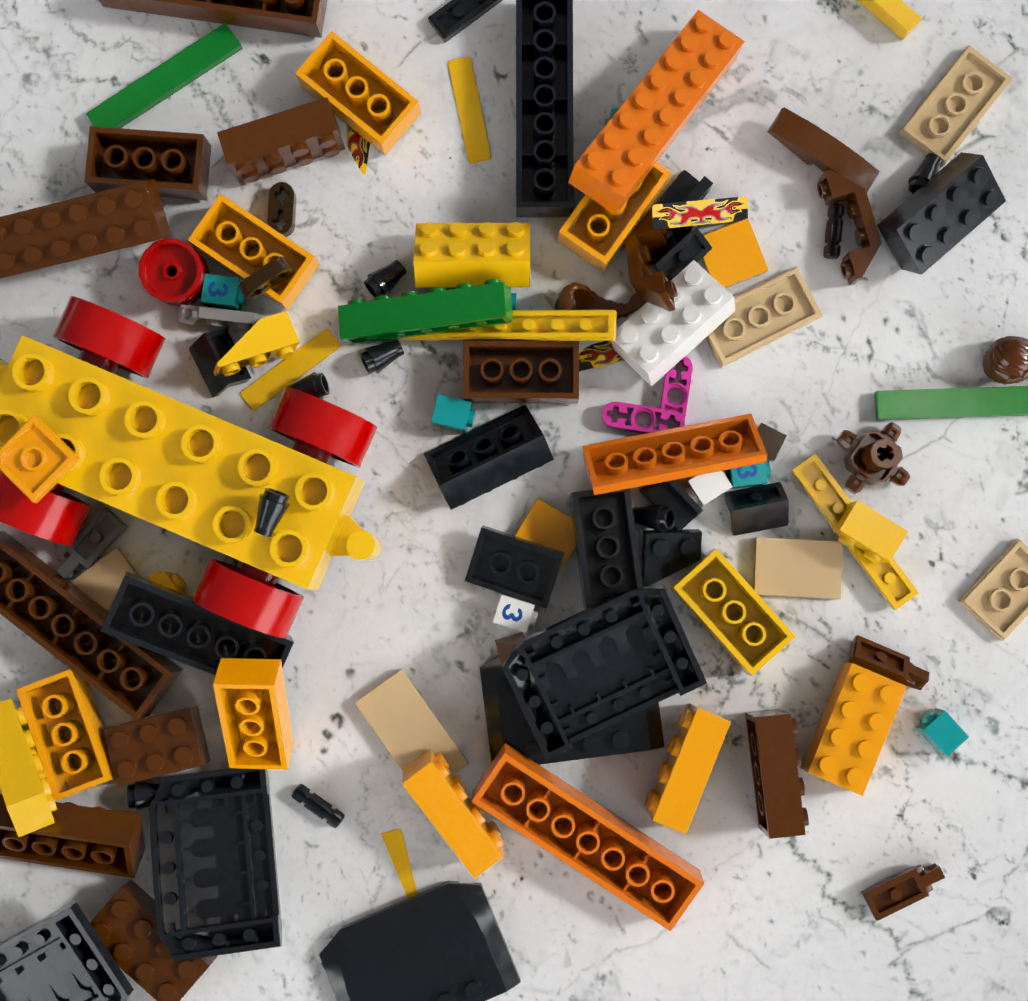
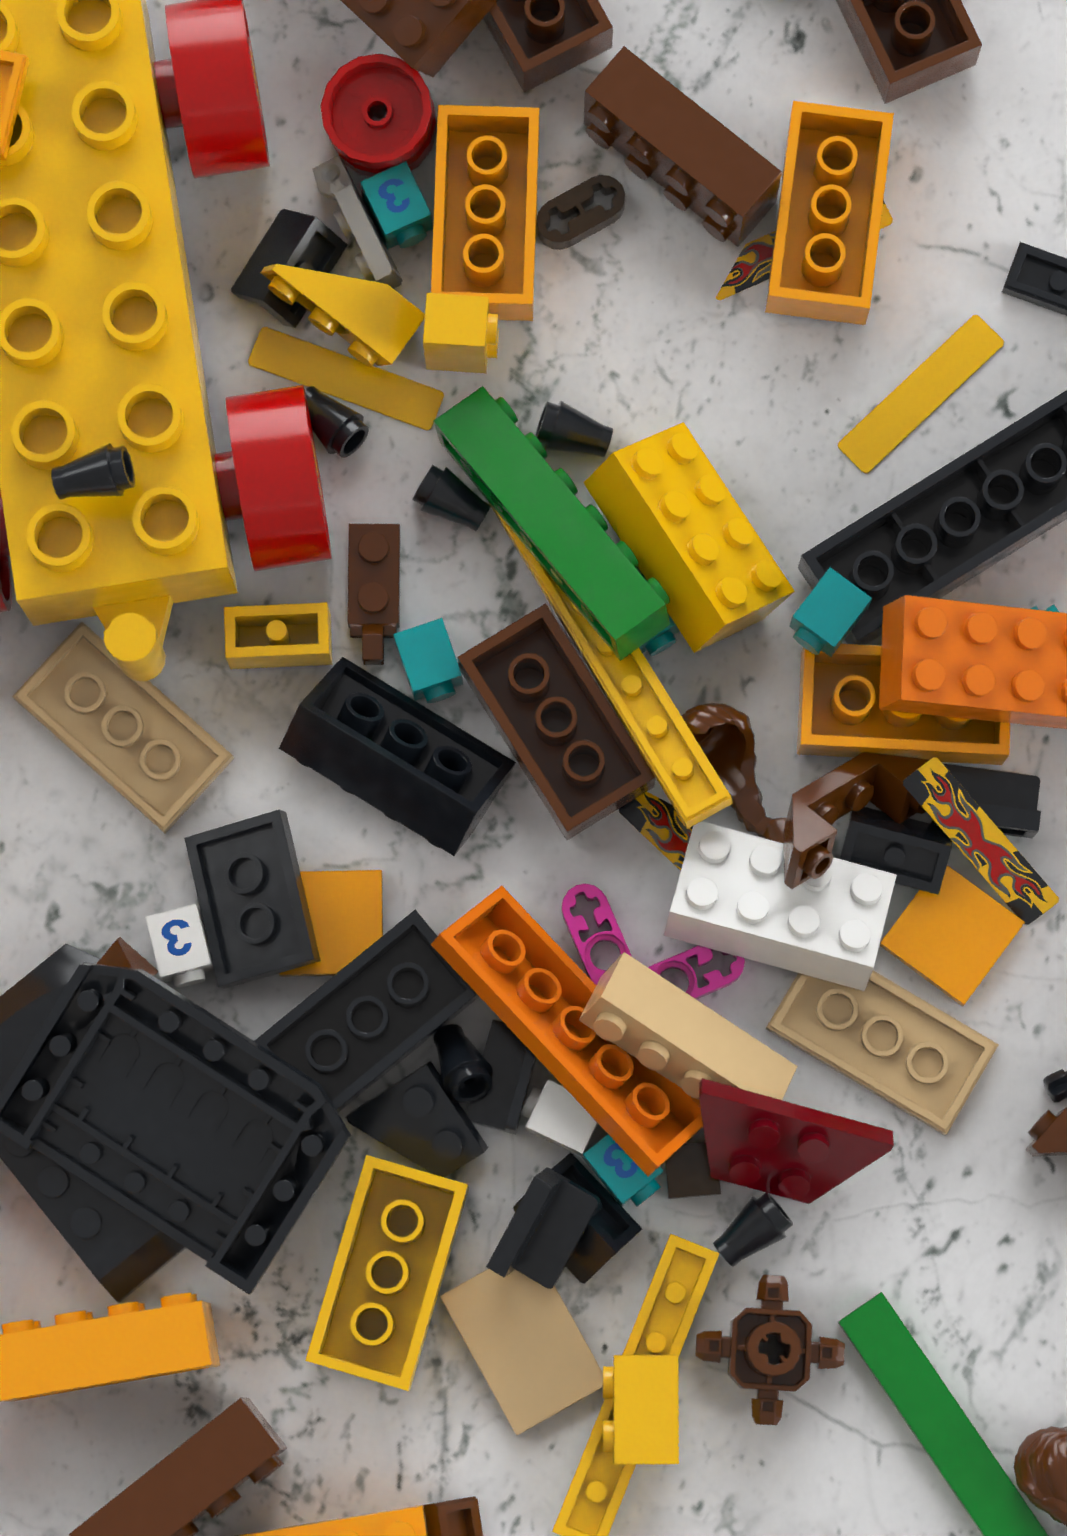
camera: 55 degrees right, 5 degrees down
(265, 278) = (450, 253): dark brown beam -> none
(305, 300) = (459, 333): none -> yellow brick
(392, 578) = (123, 728): none -> tan tile
(396, 476) = (278, 635): none -> yellow brick
(400, 418) = (373, 587): none -> reddish brown hinge
(555, 210) = (829, 614): none -> teal brick
(712, 405) = (680, 1034): none -> tan brick
(757, 525) = (545, 1229): none -> black panel
(787, 390) = (783, 1144): none -> dark red wing
(813, 430) = (754, 1229): none -> black cone

